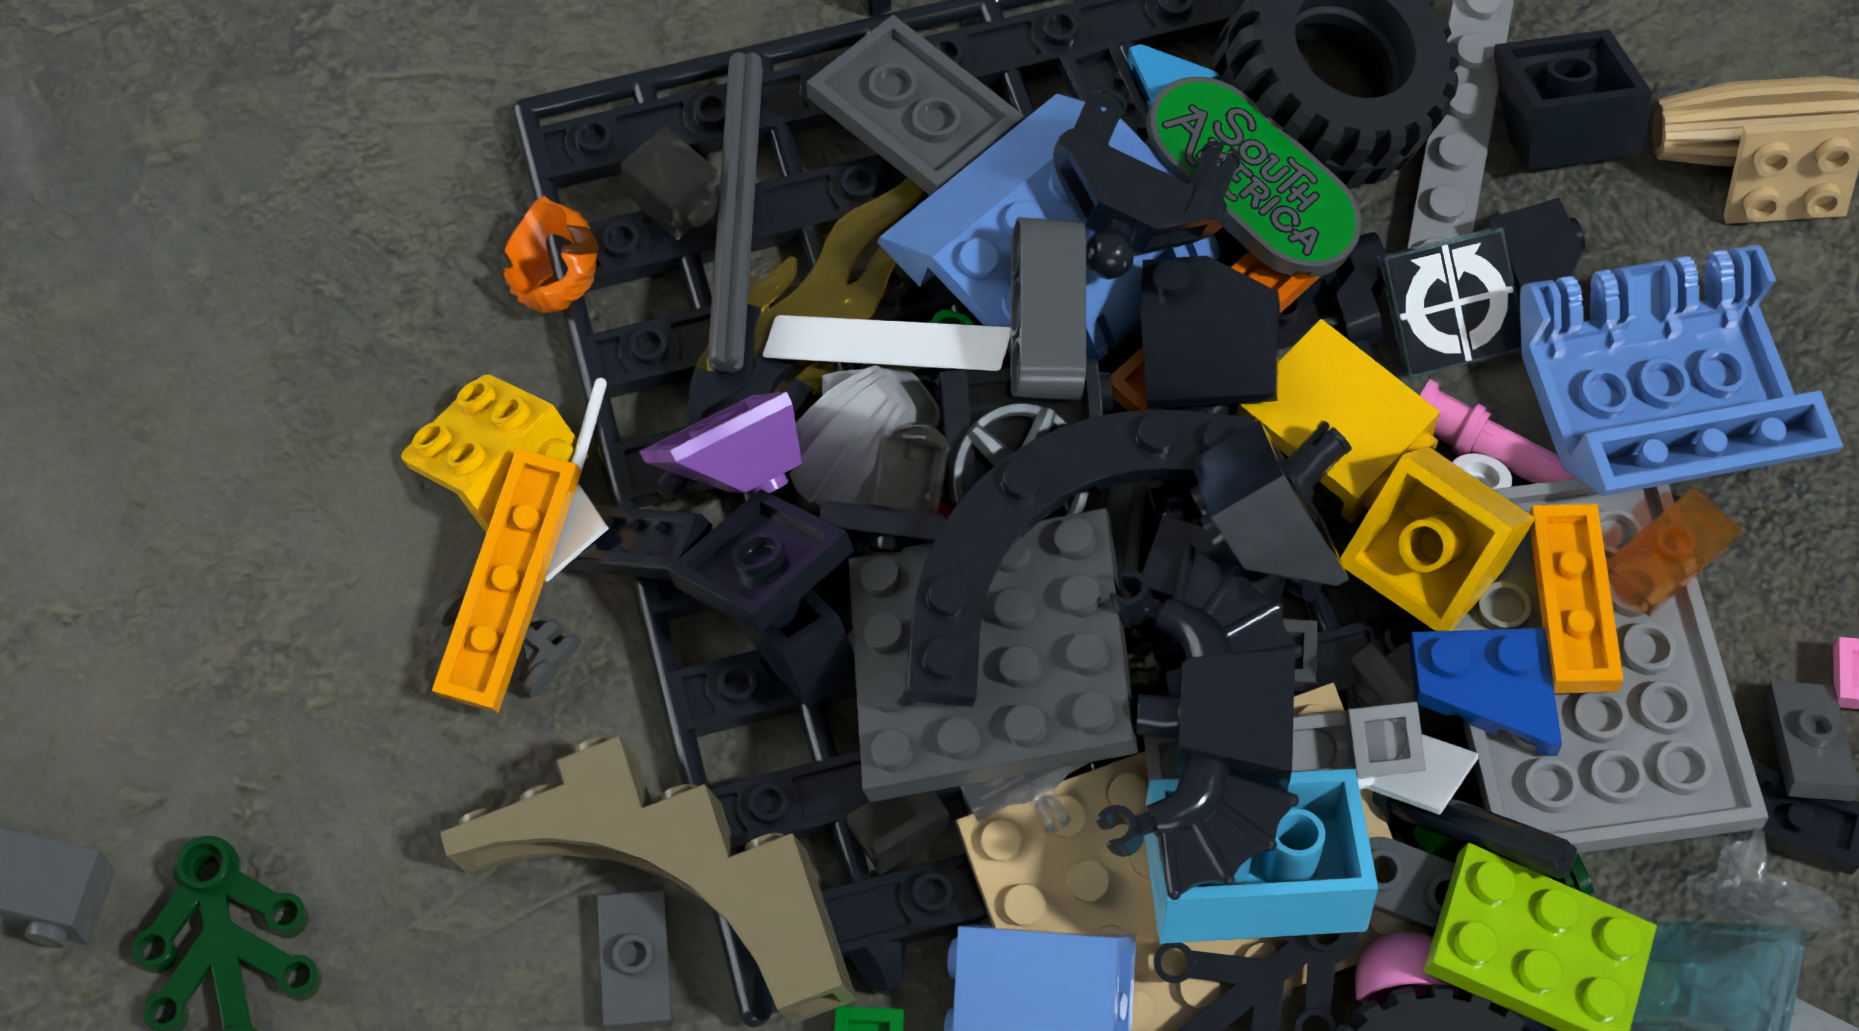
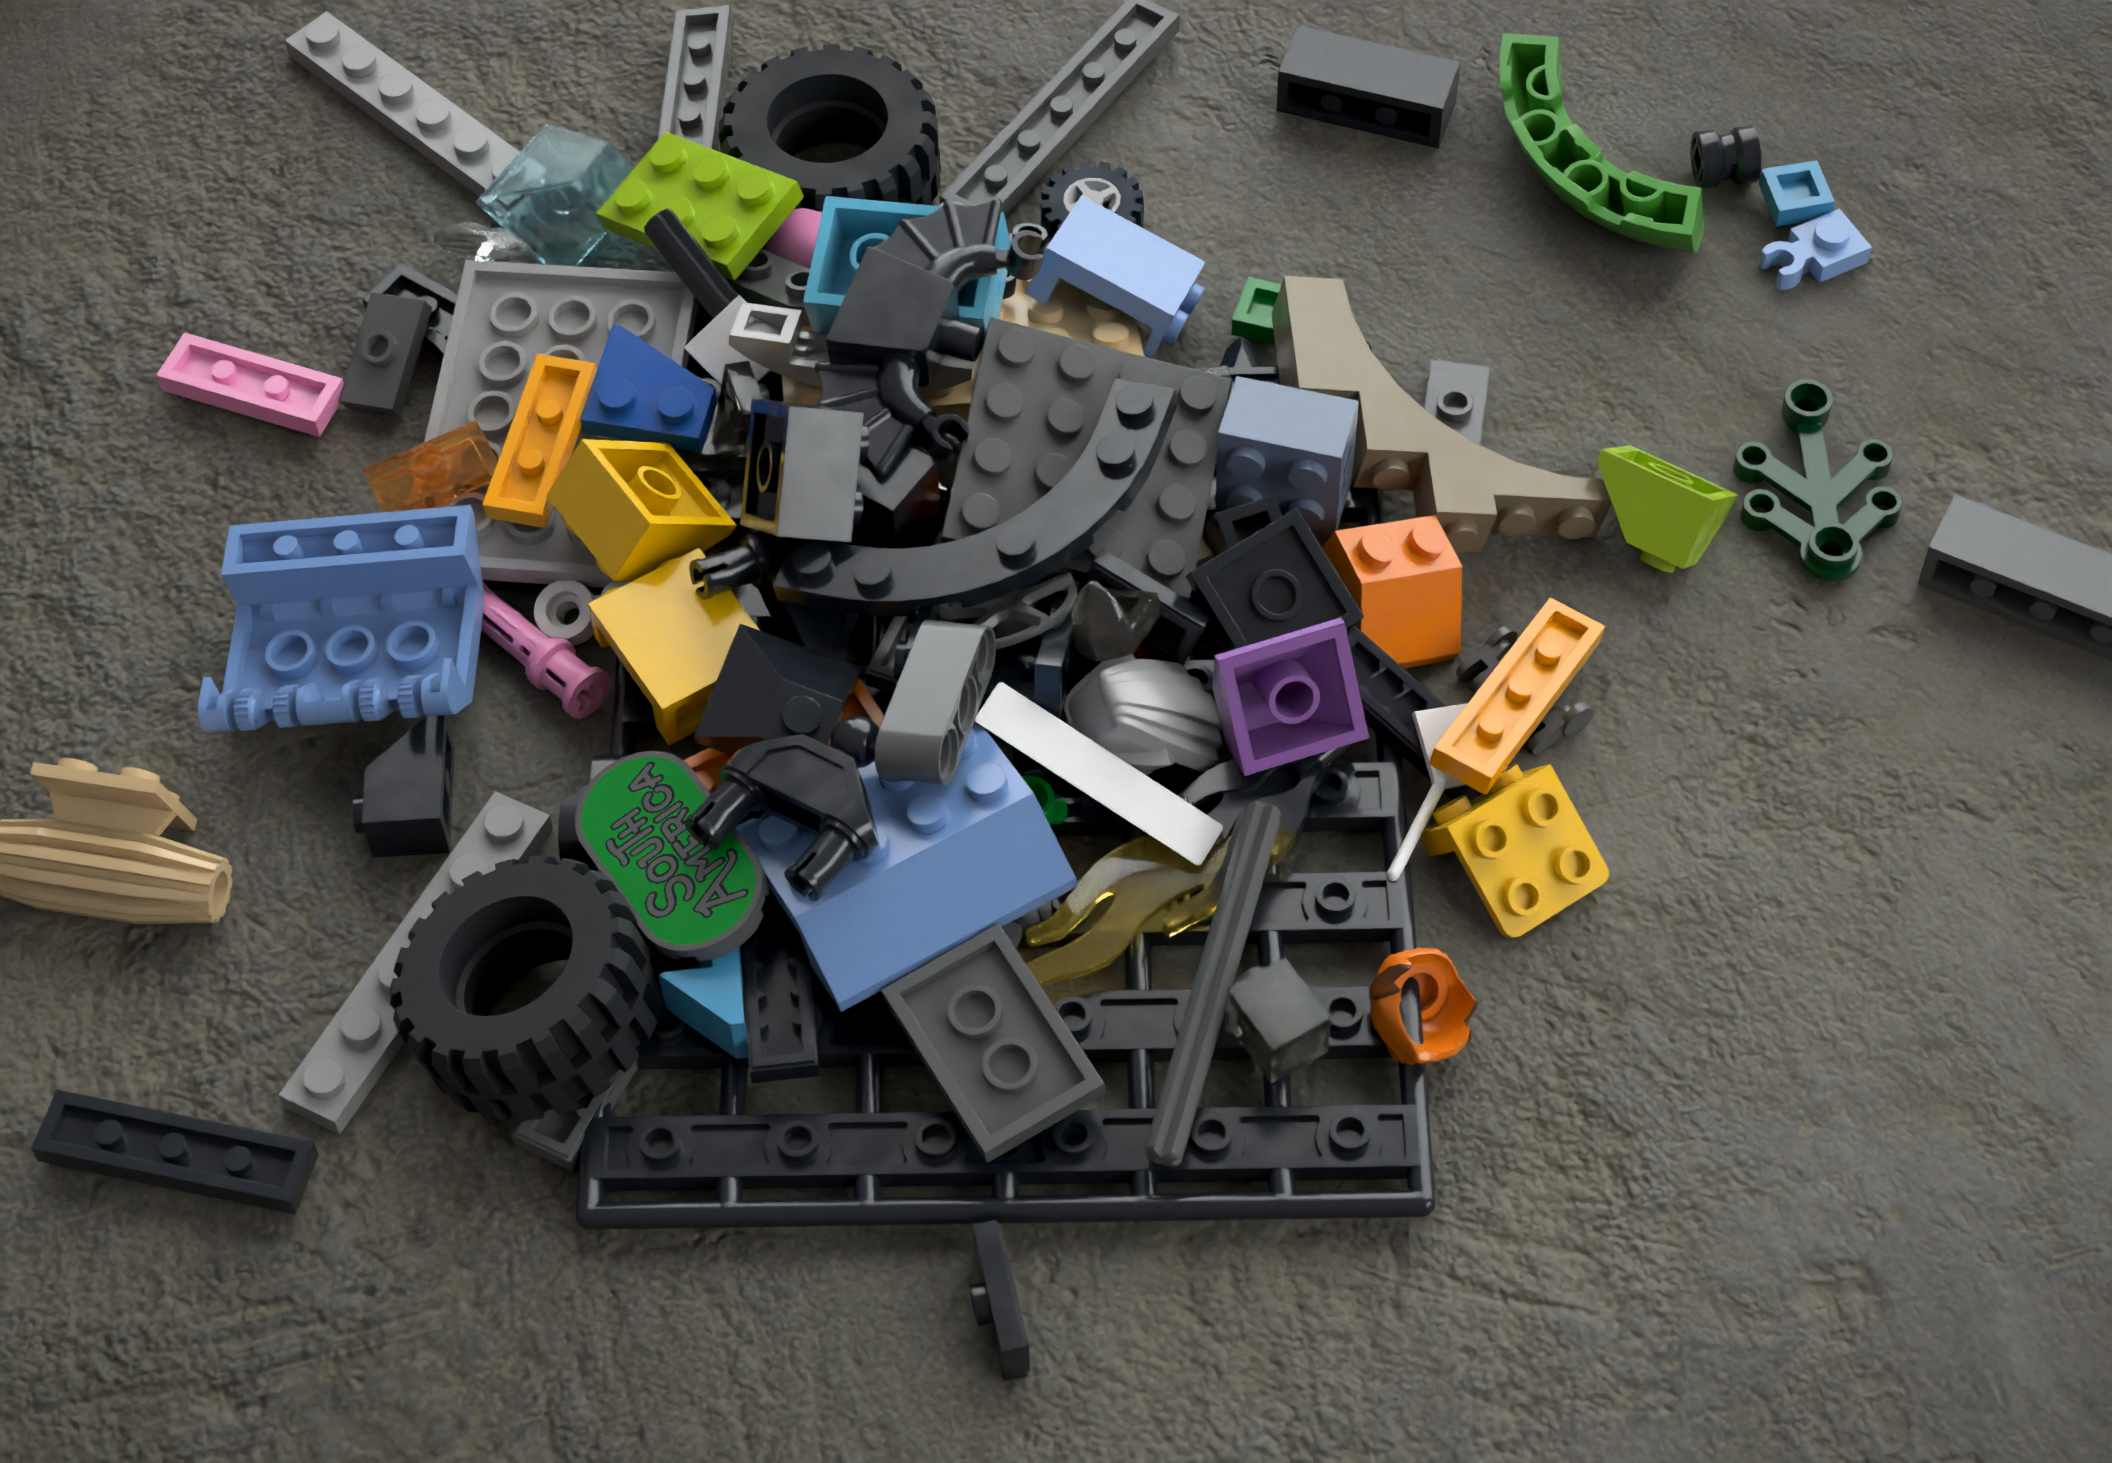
camera: 165 degrees left, 10 degrees down
(386, 877) = (1663, 506): none -> lime slope
(659, 668) = (1404, 586): none -> orange slope
(787, 744) = (1287, 447): none -> sand blue brick
(1452, 302) = (512, 766): tile -> none
(1572, 99) = (289, 941): black slope -> none

